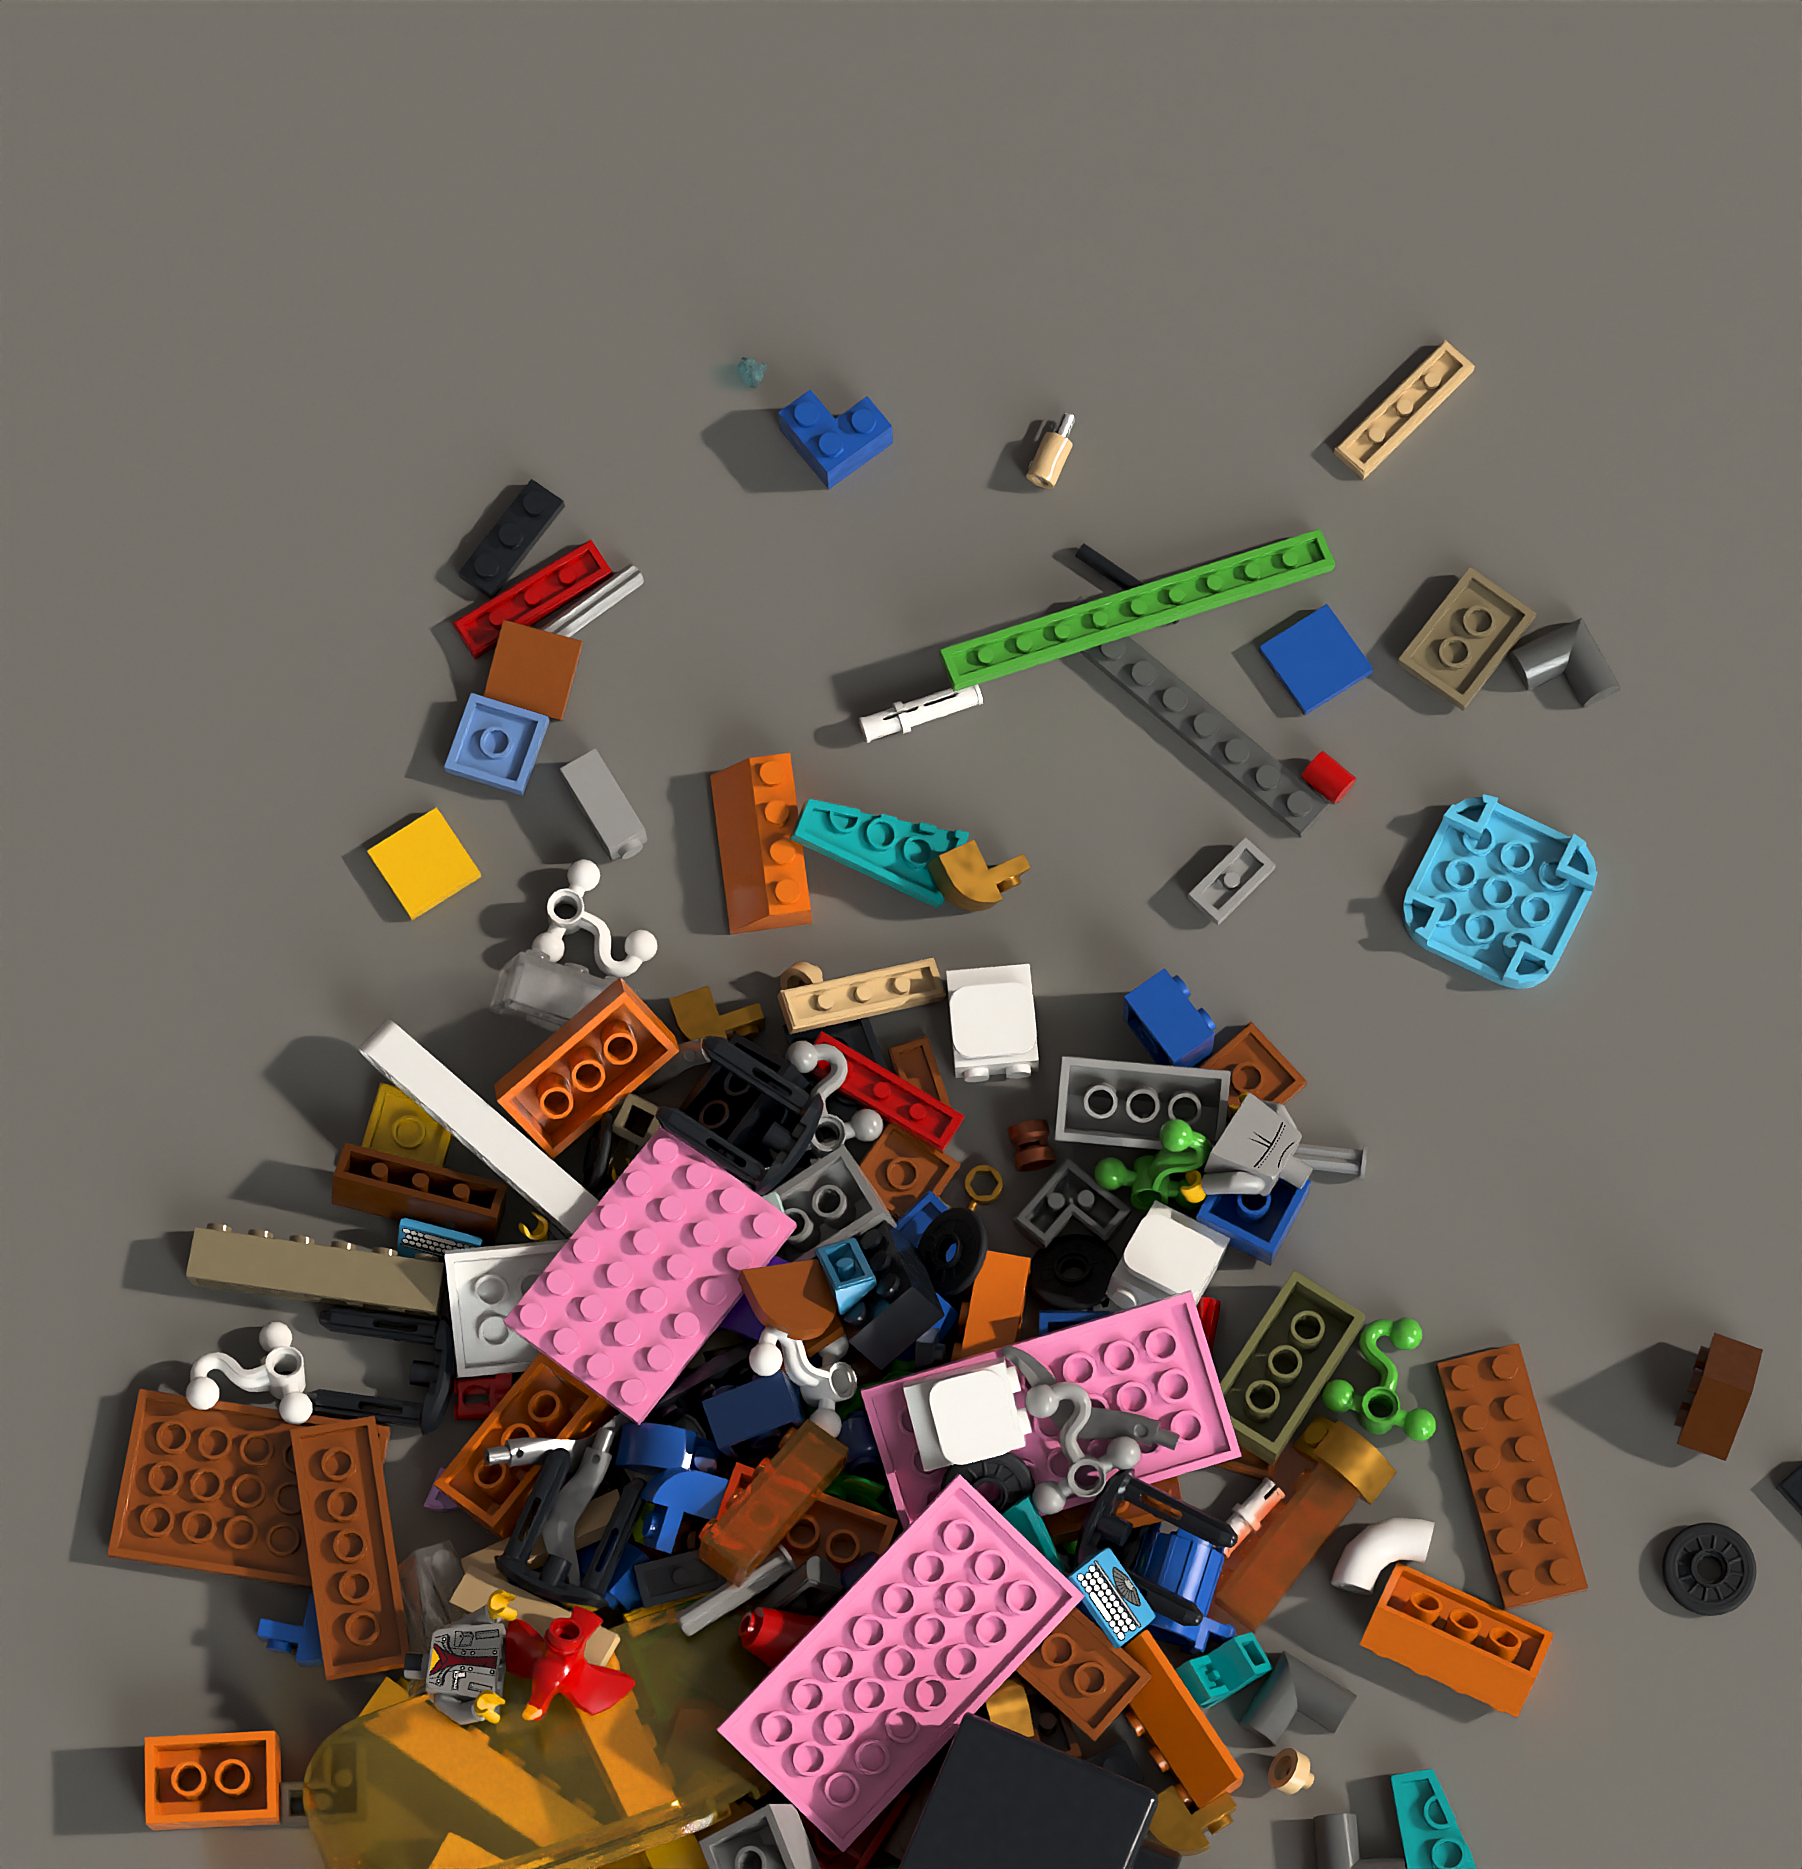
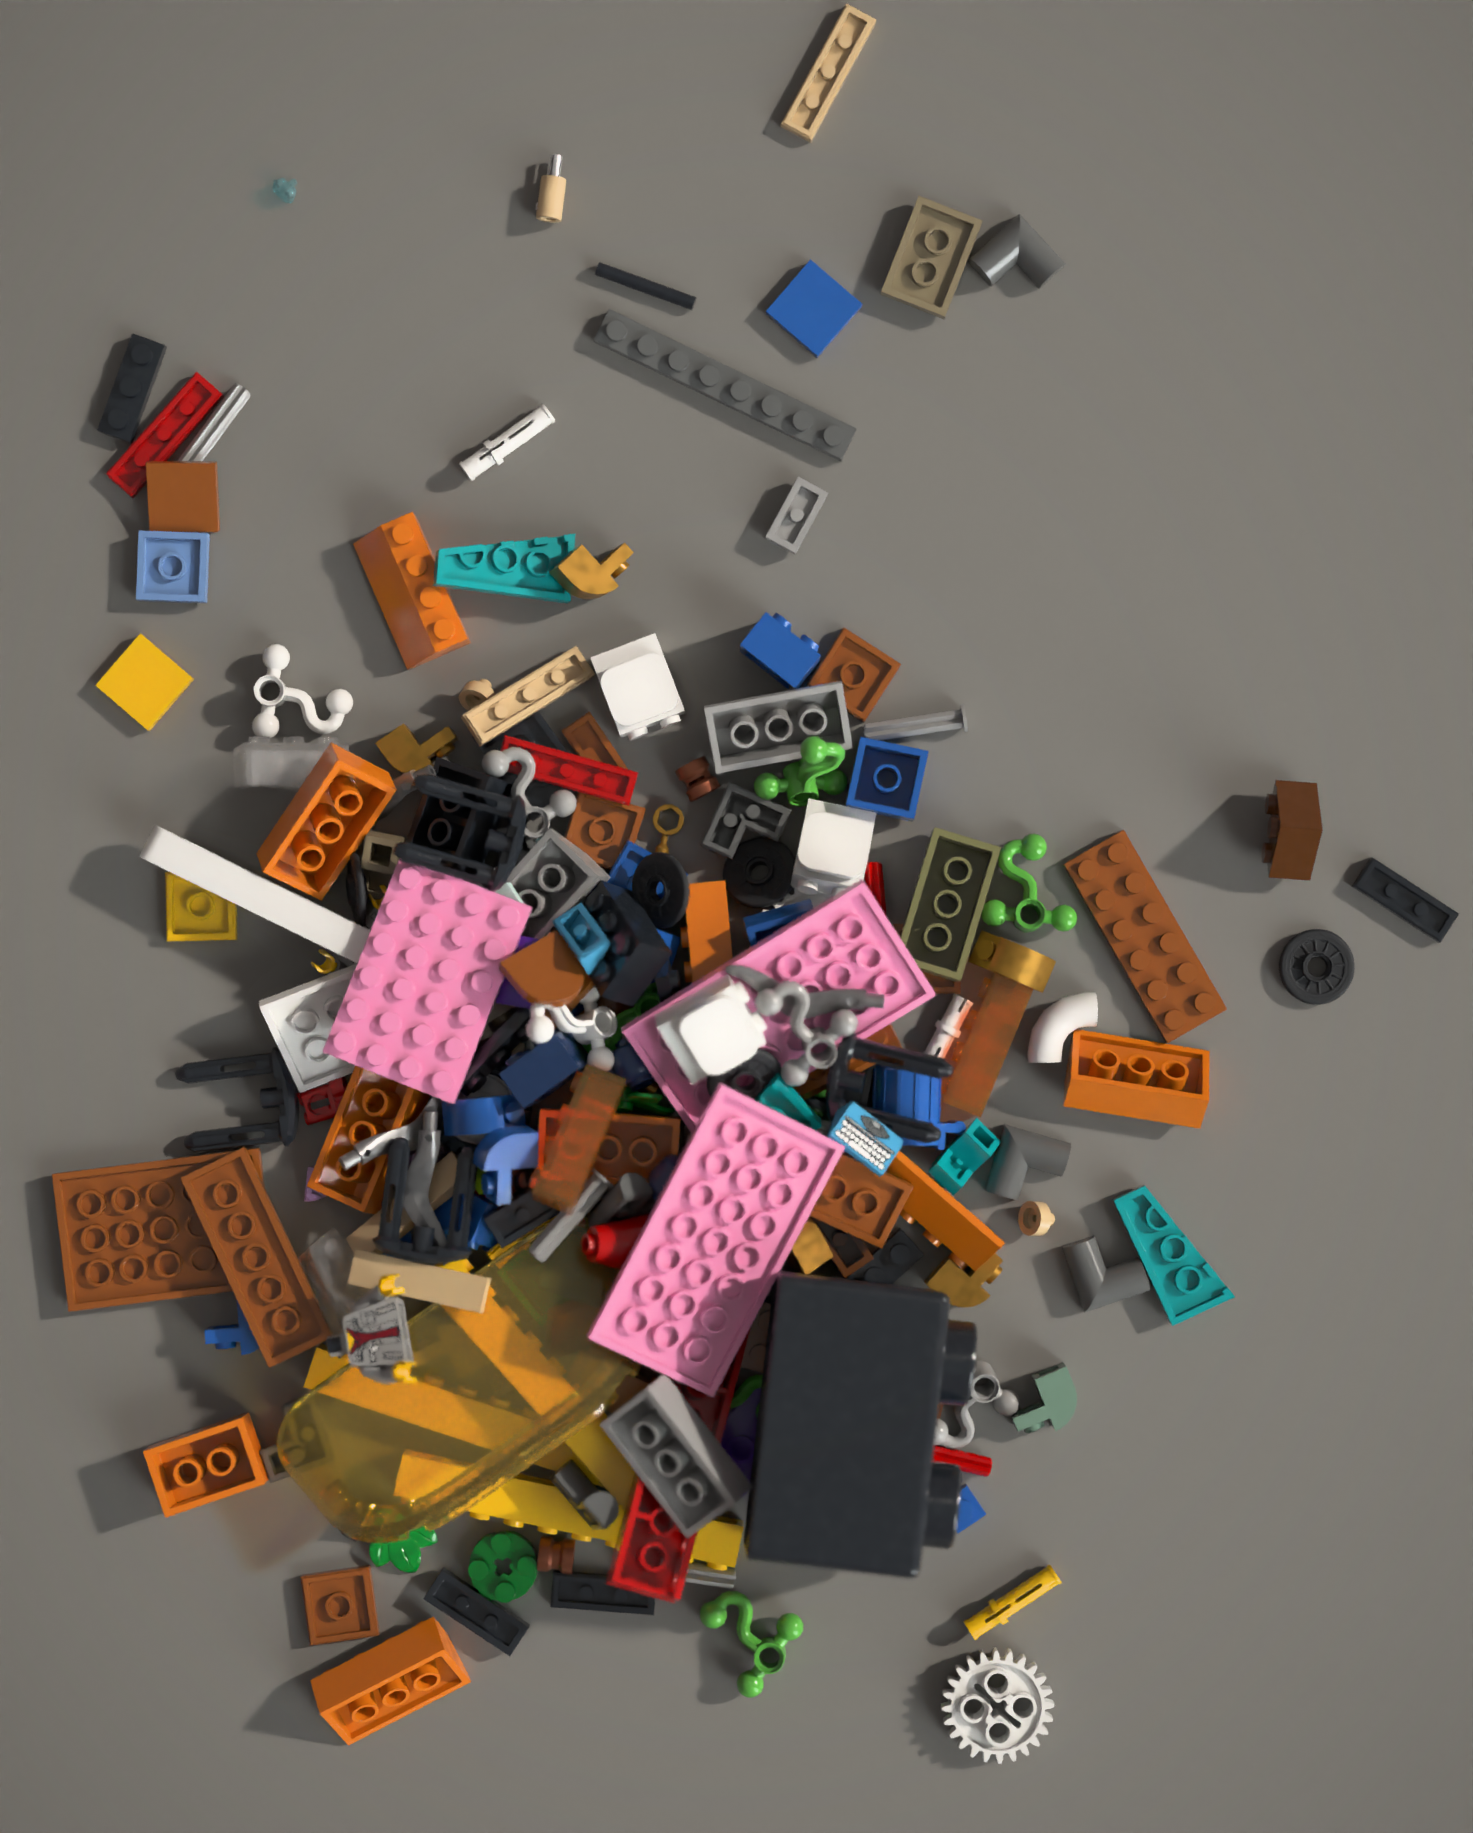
camera: 15 degrees left, 15 degrees up
(276, 1340) = (145, 1102): white piece -> none
(317, 1272) = (163, 1041): dark tan brick -> none
(418, 1191) = (223, 957): reddish brown brick -> none
(431, 1239) = (248, 992): slope -> none
(559, 1665) = (450, 1318): red animal -> none
(604, 806) = (275, 595): light grey brick -> none
(834, 445) = (372, 235): blue brick -> none
(1136, 610) = (658, 310): bright green plate -> none
(1251, 1153) = (877, 743): light grey torso -> none
(1328, 777) = (851, 406): red piece -> none
(1499, 893) = (1012, 464): medium azure tile -> none

